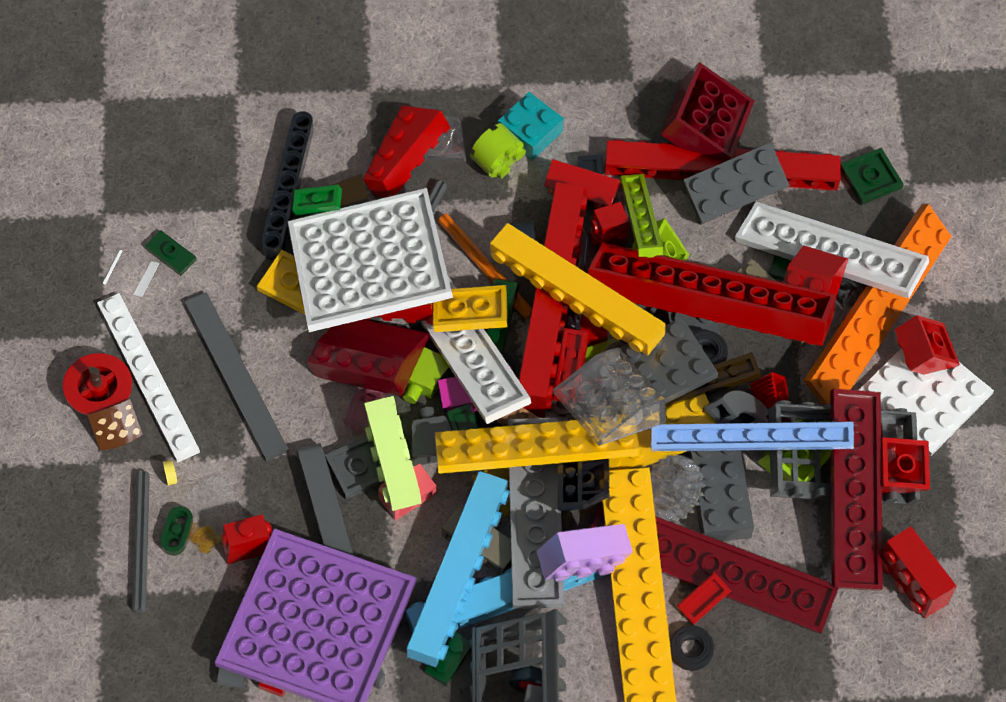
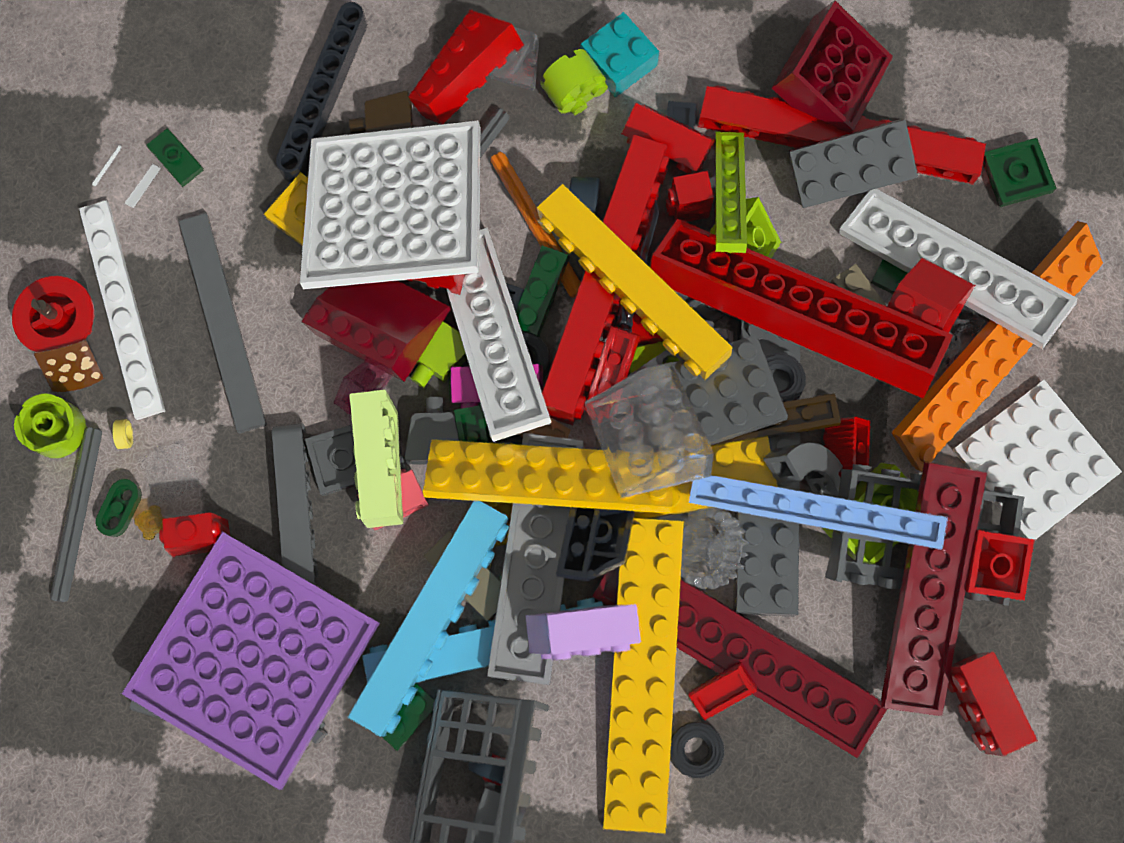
camera: 15 degrees right, 15 degrees up
(111, 485) = (50, 426): none -> lime brick
(317, 199) = (349, 117): green plate -> none
(471, 309) = (505, 285): yellow plate -> none
(926, 345) = (1050, 406): red slope -> none

